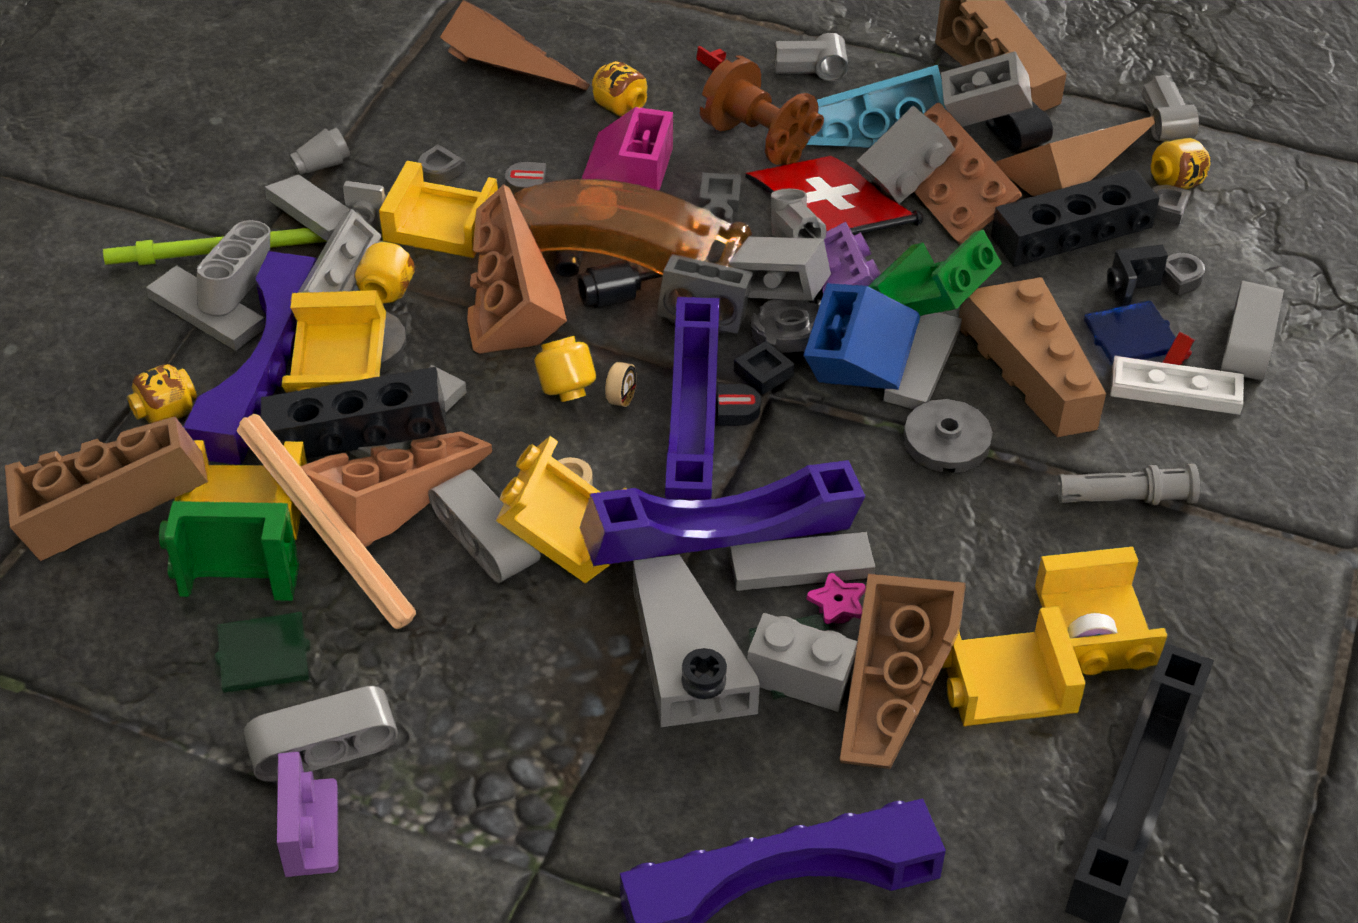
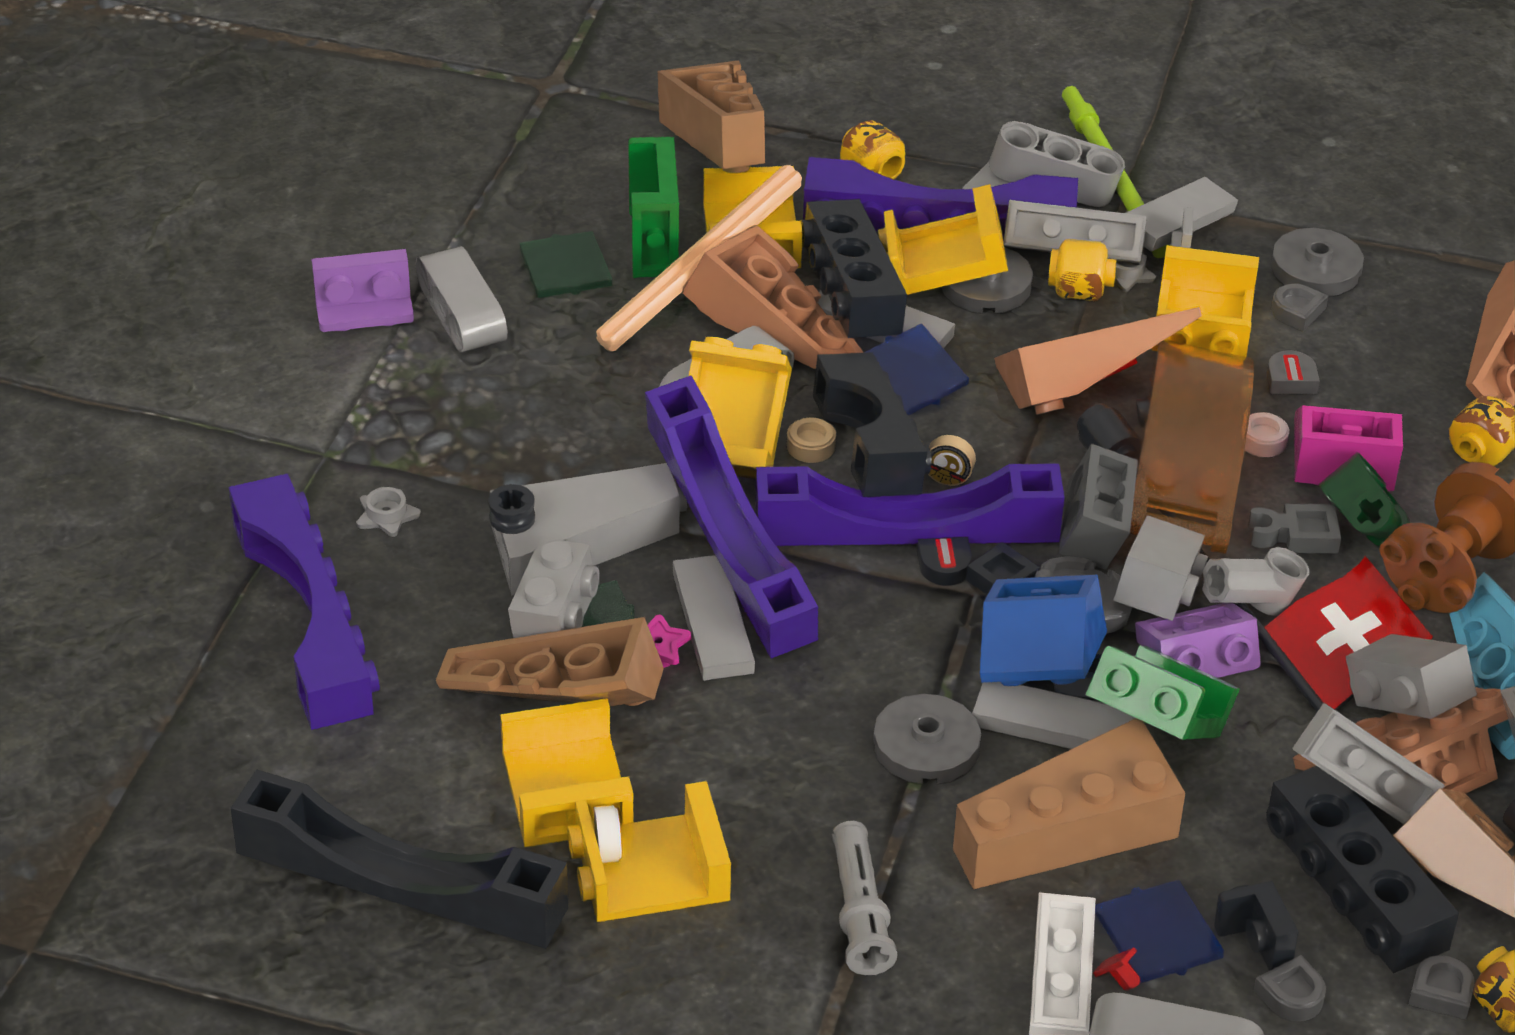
camera: 85 degrees right, 5 degrees down
(320, 152) = (1281, 209): light grey cone -> none
(385, 145) = (1317, 260): none -> flat silver plate
(491, 399) = (919, 368): none -> clear blue piece
(565, 368) = (954, 406): yellow head -> none
(631, 405) = (886, 448): none -> black arch
(635, 799) = (386, 510): none -> light grey plate
(701, 153) = (1364, 499): none -> dark green piece
(1024, 176) = (1365, 764): none -> light grey tile

